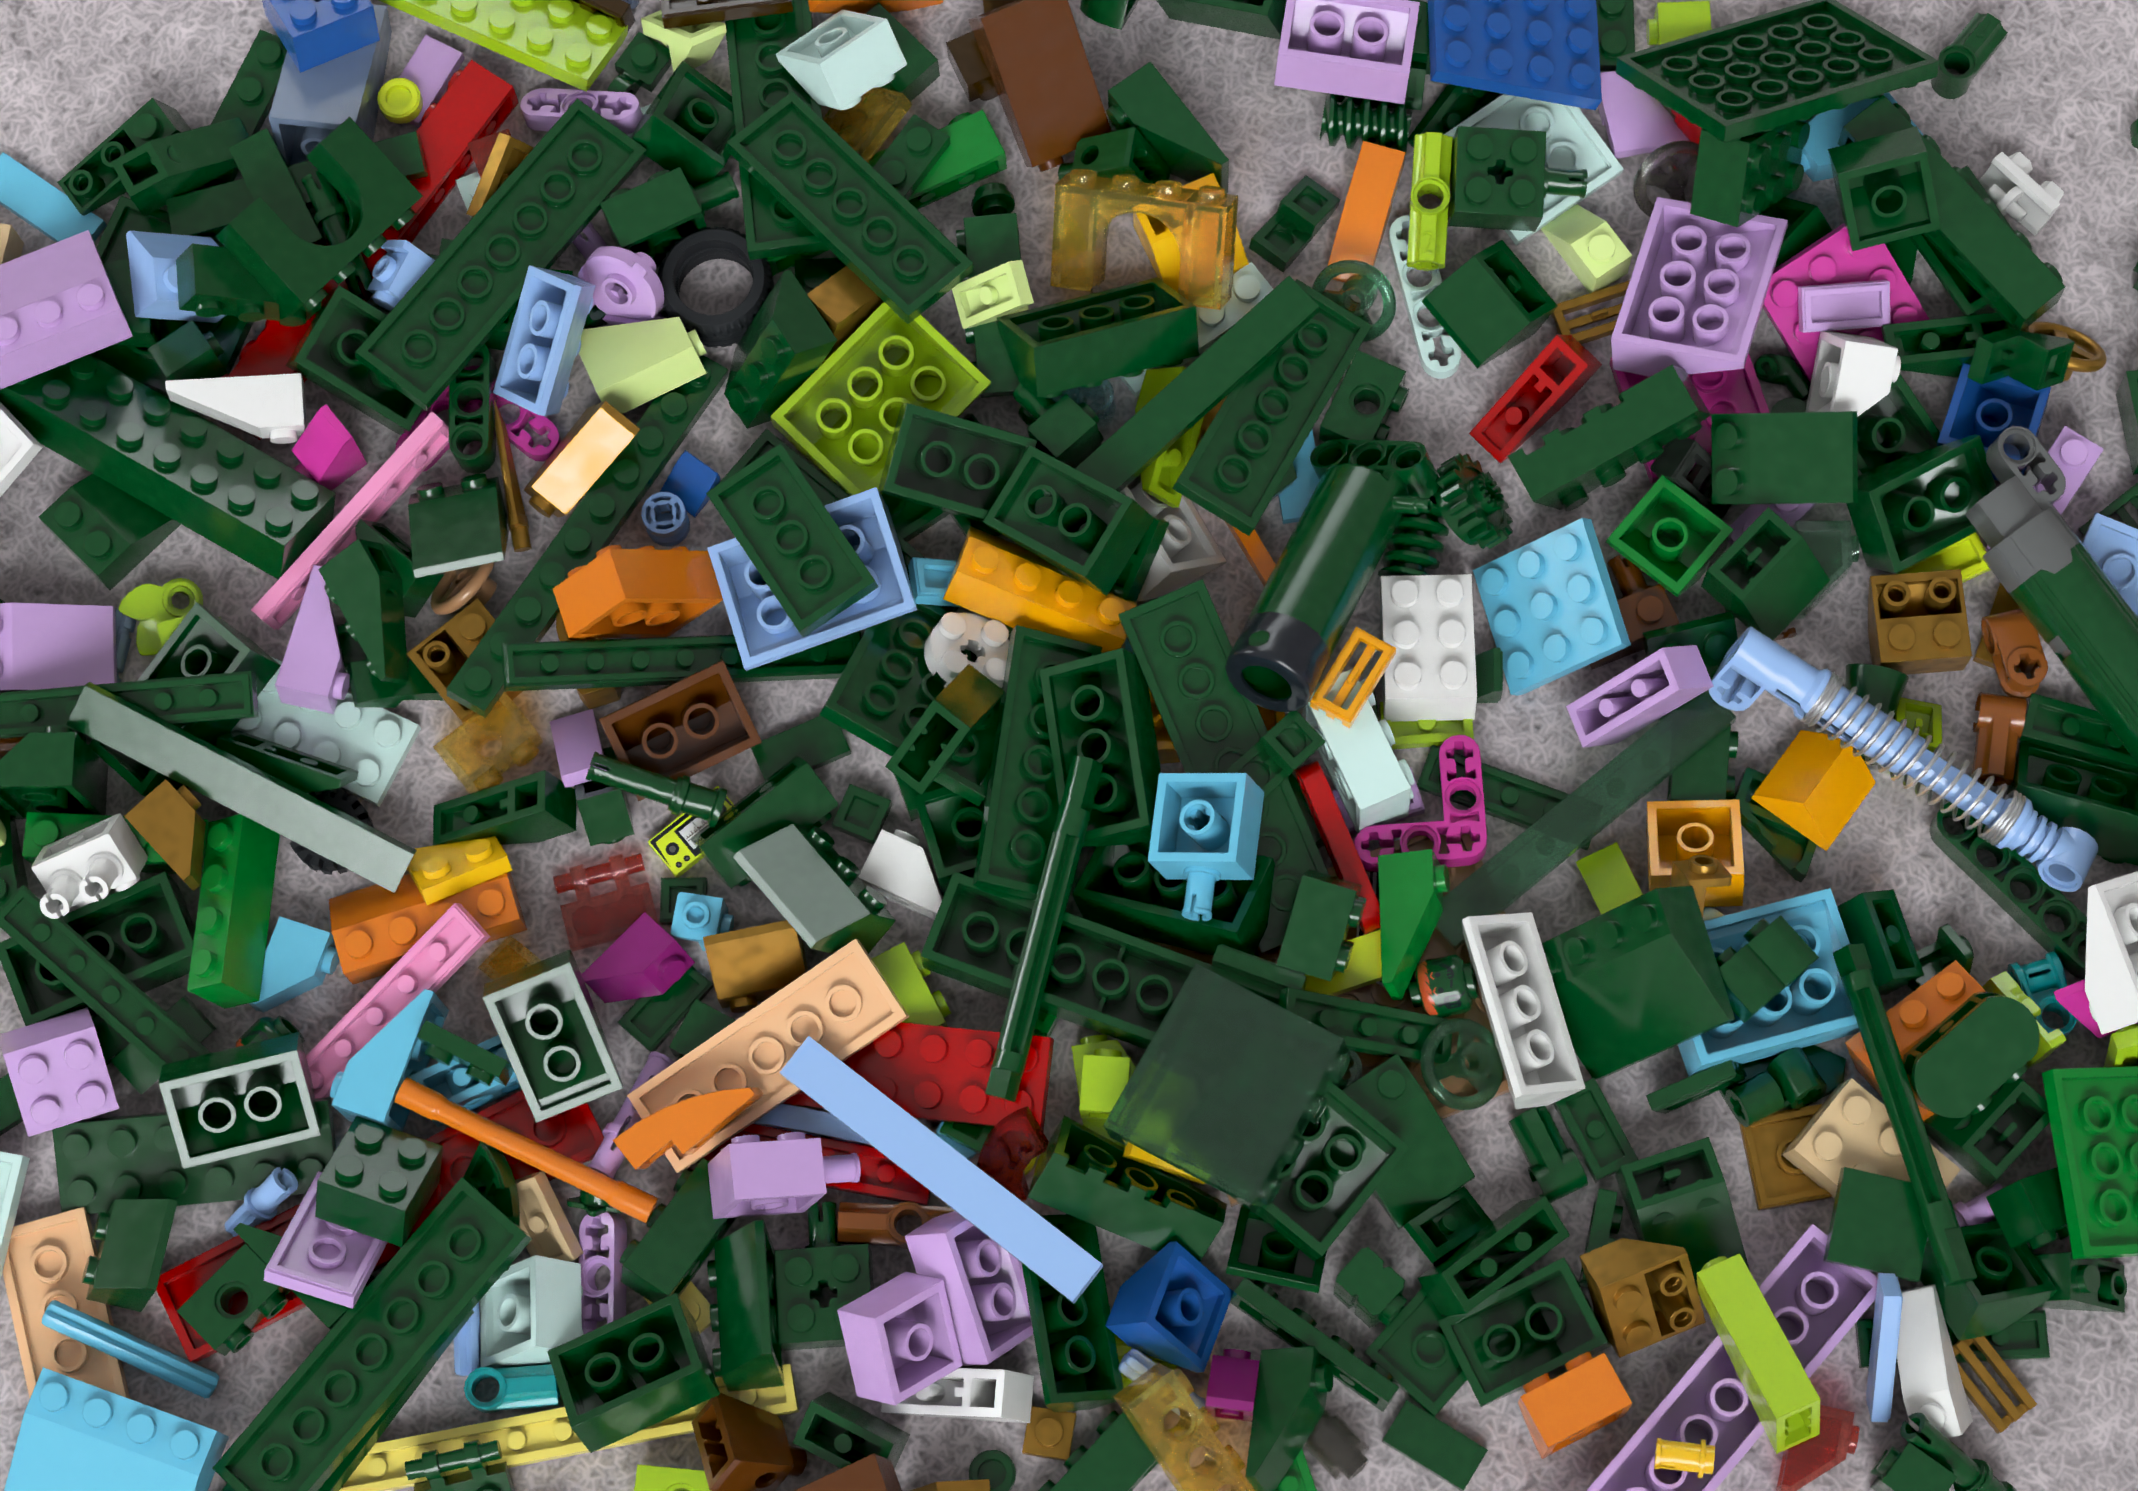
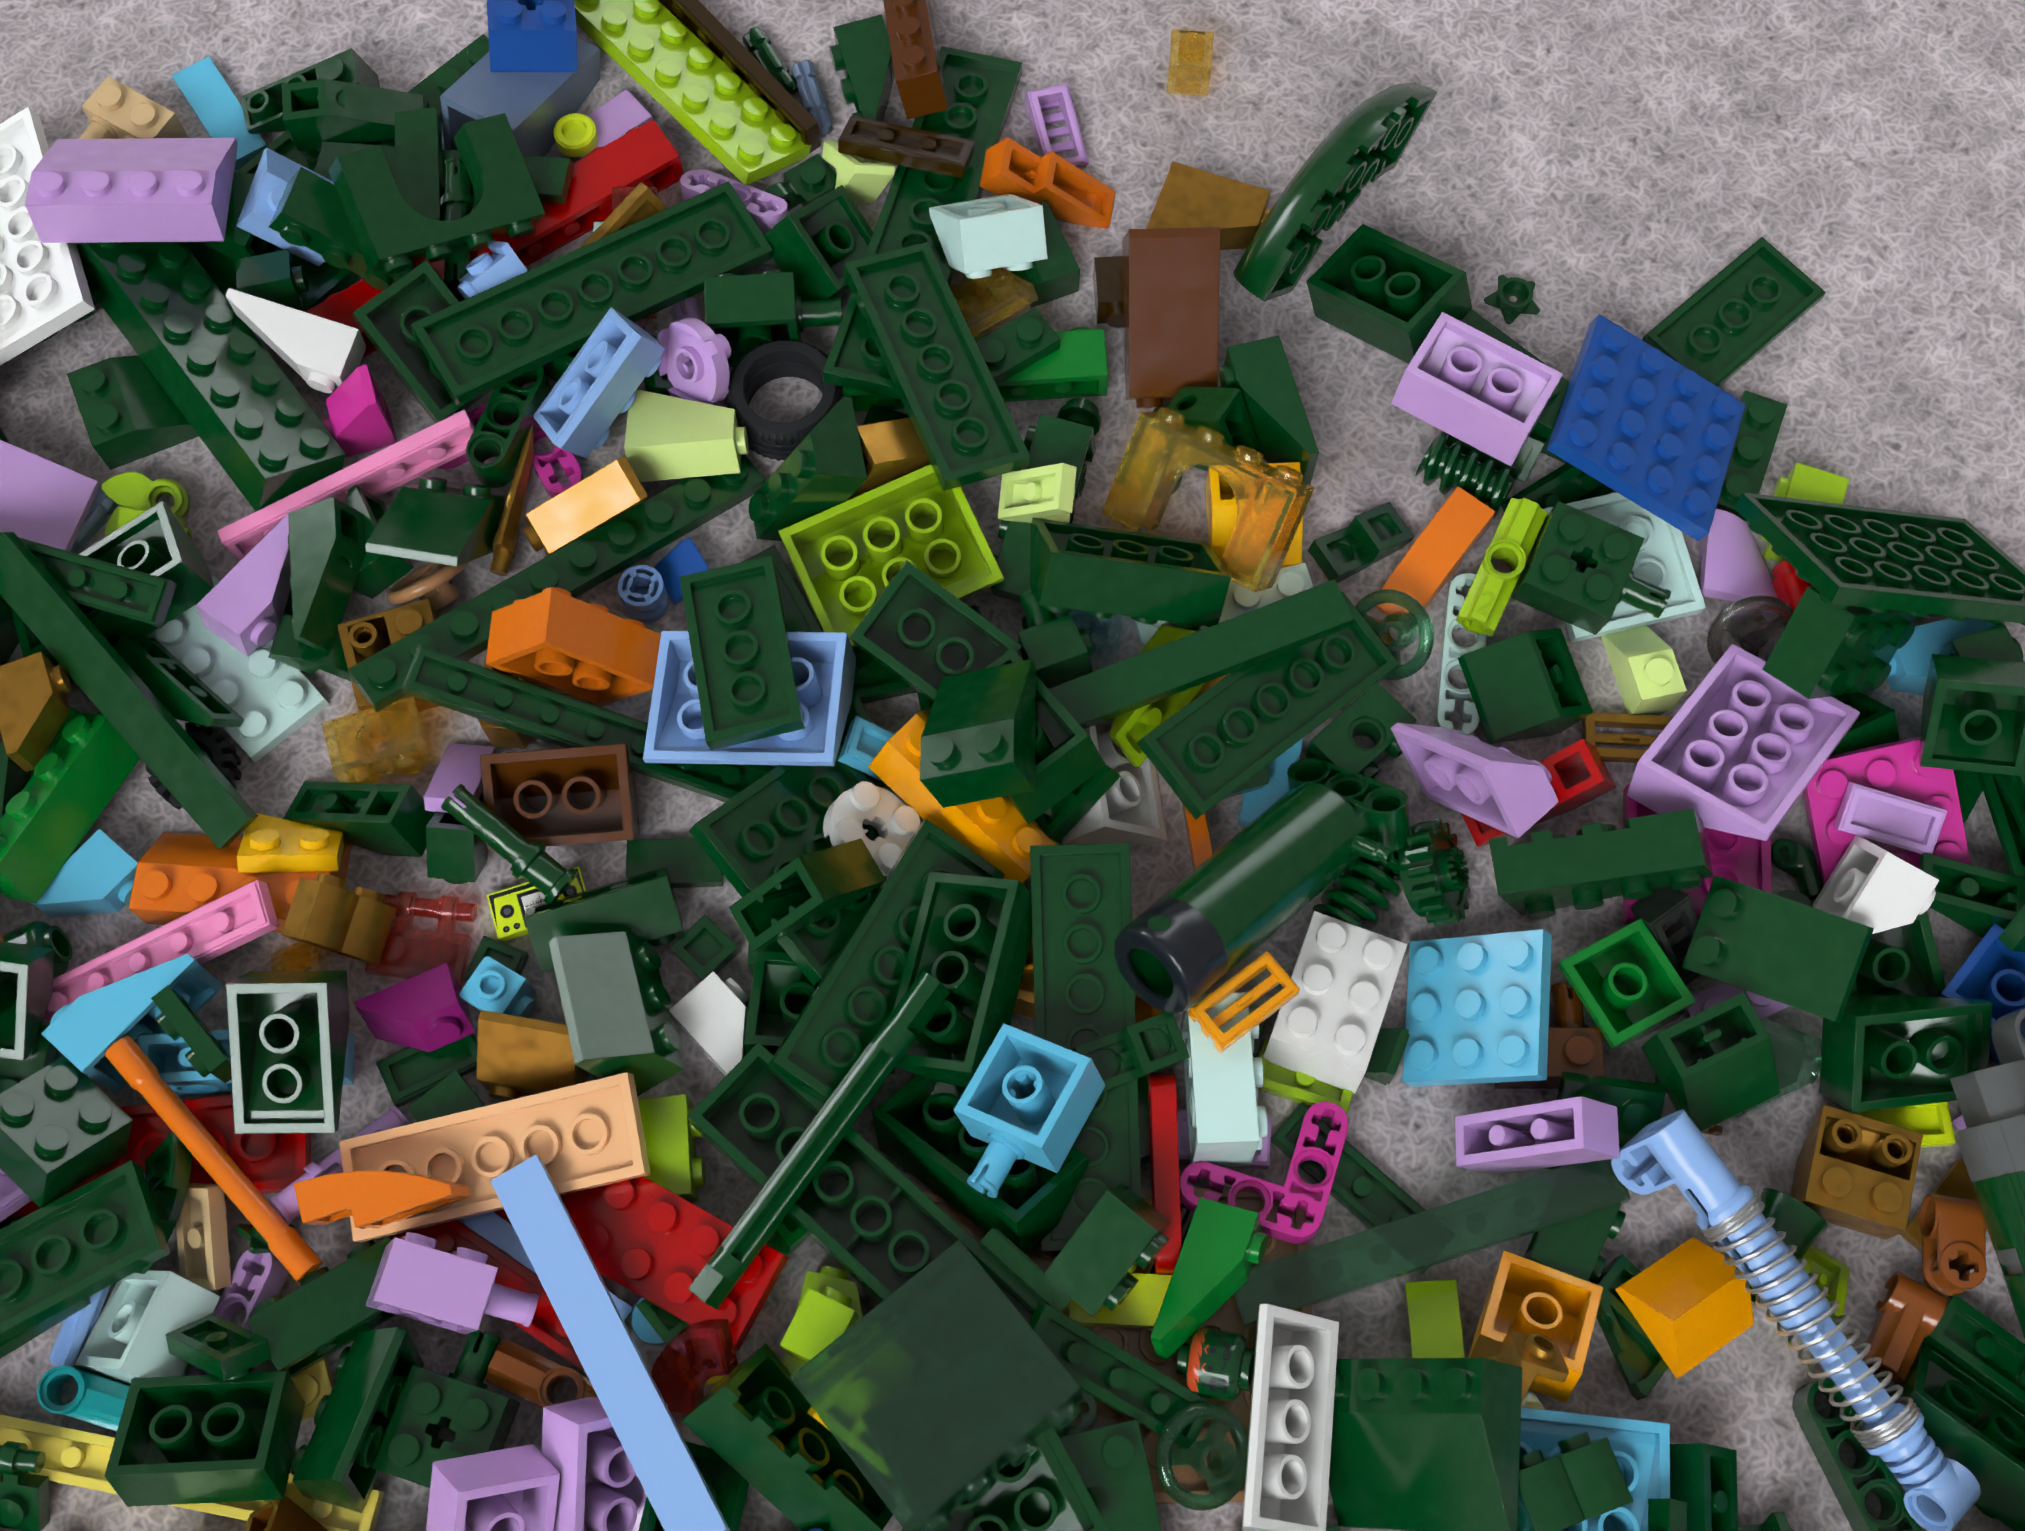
camera: 15 degrees right, 5 degrees down
(537, 909) = (339, 919): none -> pearl gold brick
(608, 1297) = (219, 1347): none -> dark green plate
(1038, 532) = (981, 735): none -> dark green slope
(1477, 403) = (1477, 777): none -> lavender slope

